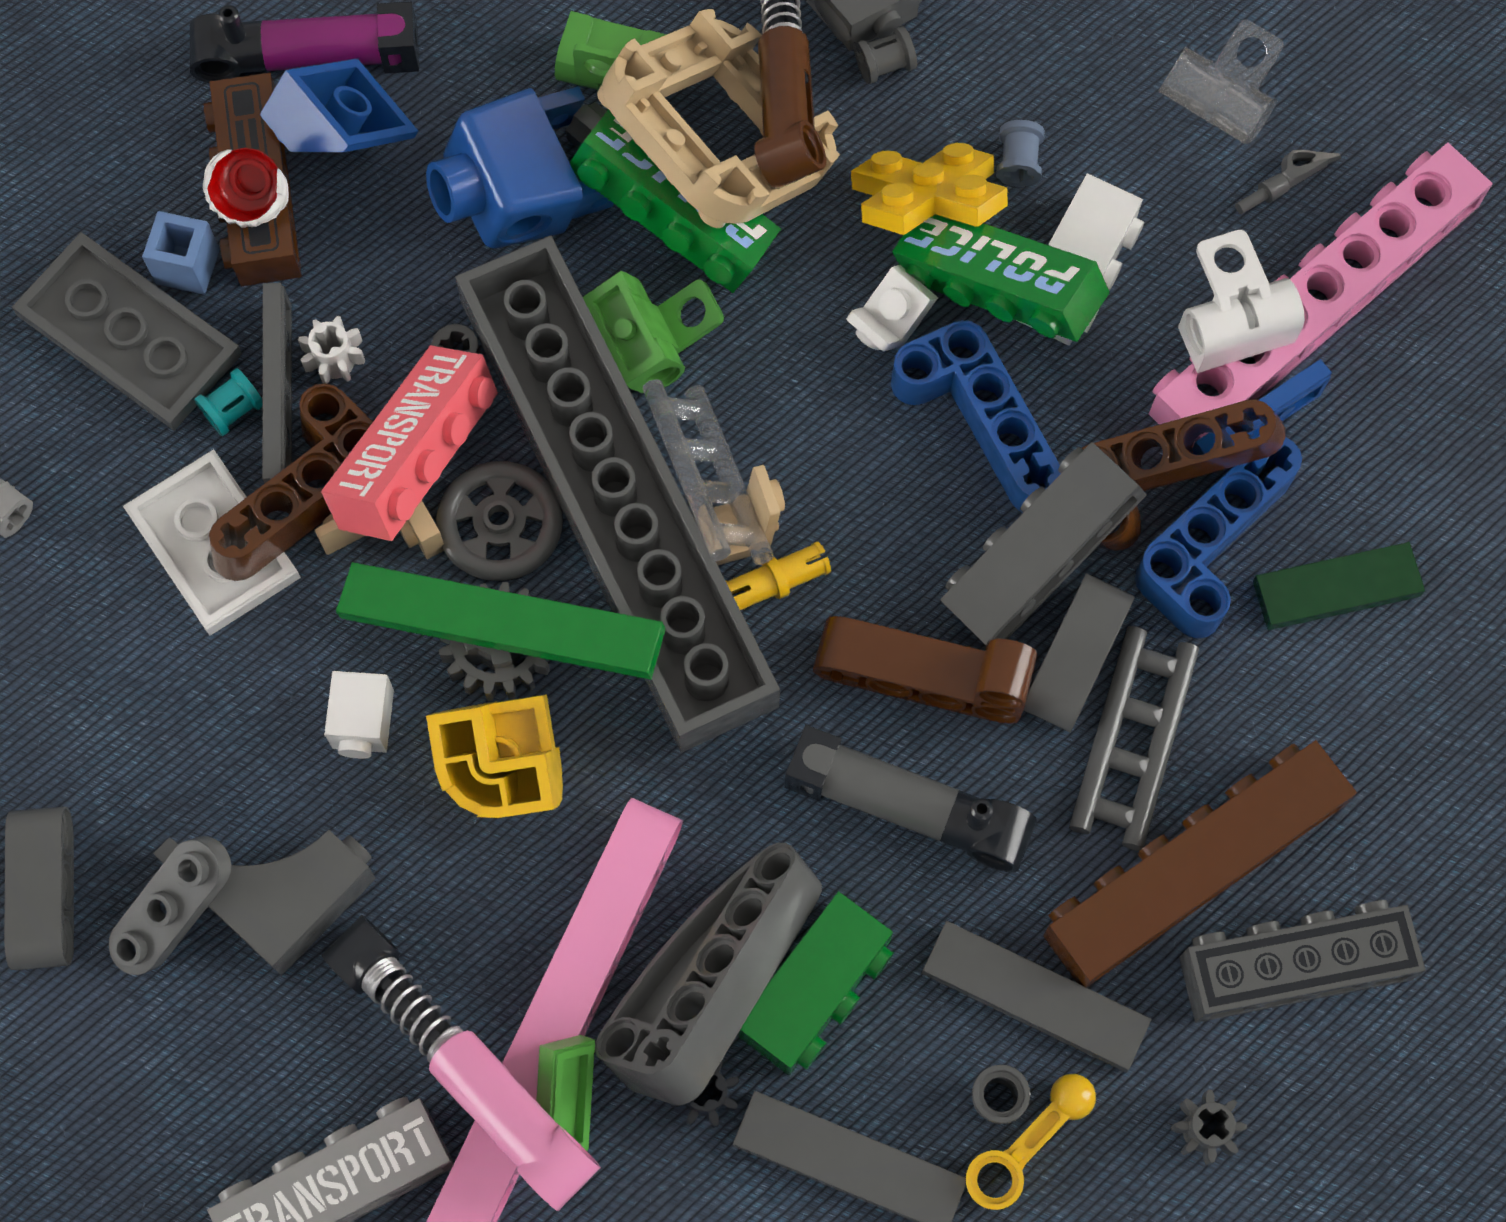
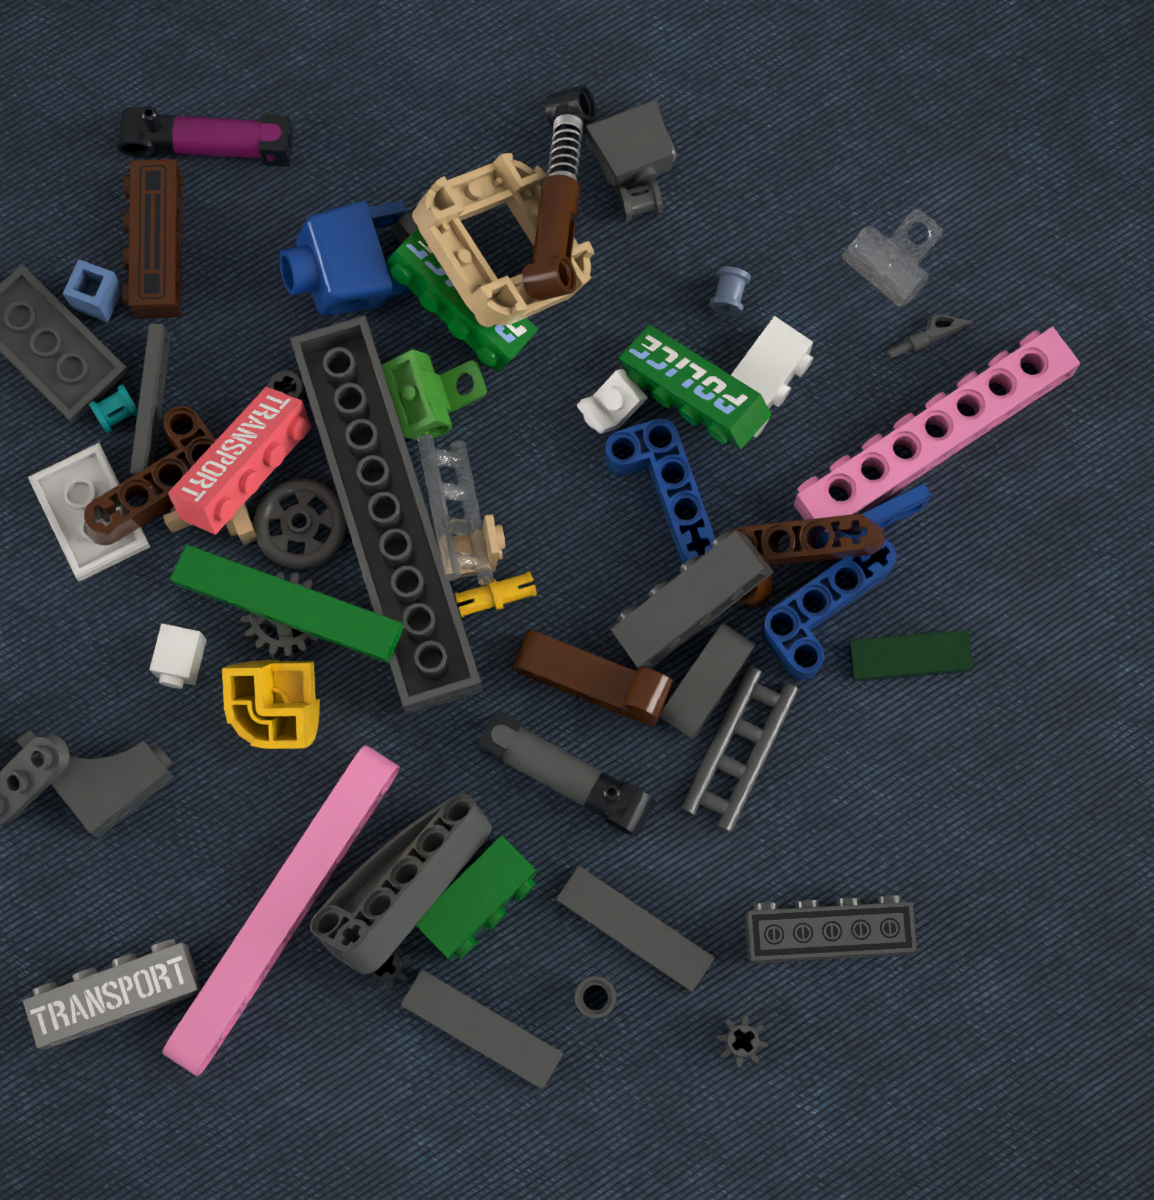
camera: 10 degrees right, 5 degrees up
(245, 187) = (144, 250): red hair -> none
(334, 110) = (220, 197): blue slope -> none
(338, 348) = (190, 369): white gear -> none
(465, 1067) = (261, 996): bright pink piece -> none
(566, 1084) = (283, 956): bright green tile -> none
(591, 48) = (421, 167): bright green piece -> none
(913, 191) = (659, 312): yellow plate -> none
(1071, 1099) = (646, 1006): yellow piece -> none
(1197, 864) = (768, 849): reddish brown brick -> none
(1246, 309) = (869, 442): white piece -> none

